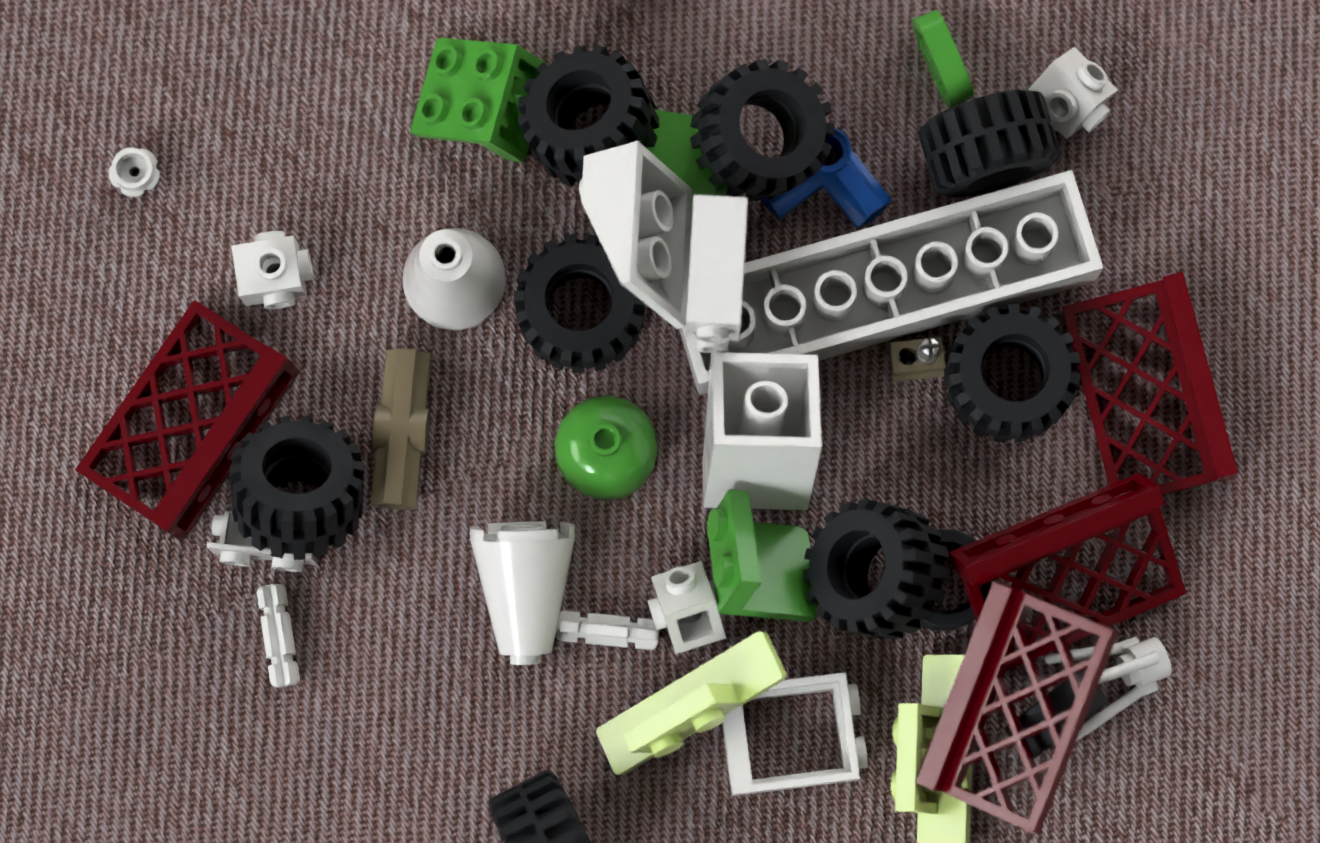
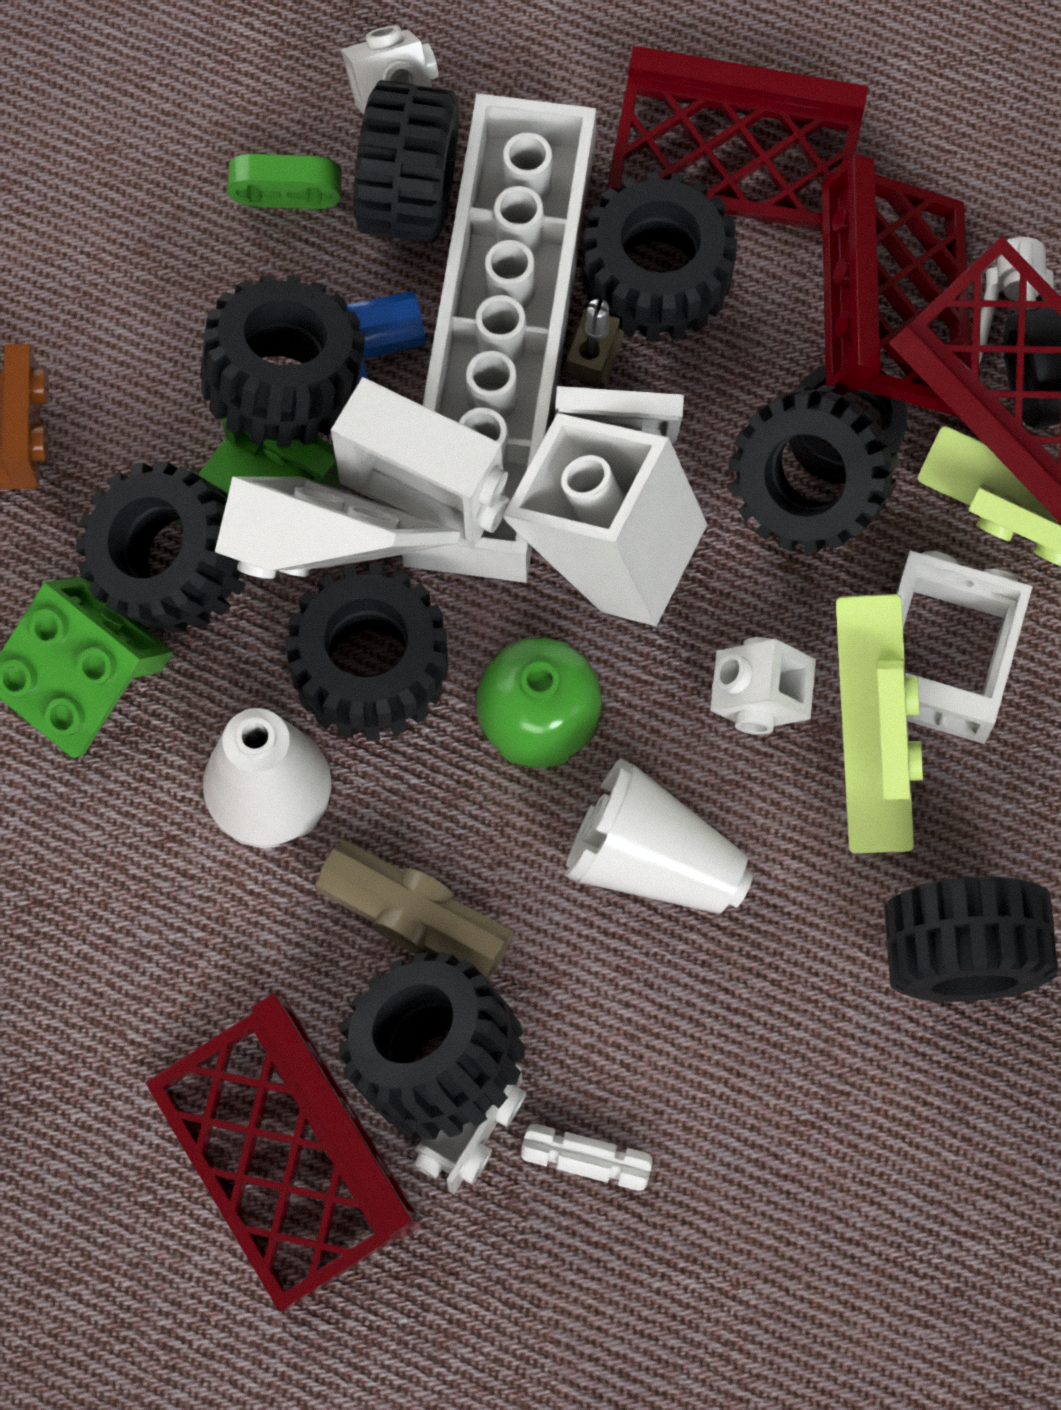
camera: 70 degrees left, 10 degrees down
(258, 258) = (161, 993): white brick -> none
(607, 630) = (747, 785): white axle -> none
(757, 563) = (746, 589): bright green bracket -> none
(853, 401) = (634, 410): none -> white tile

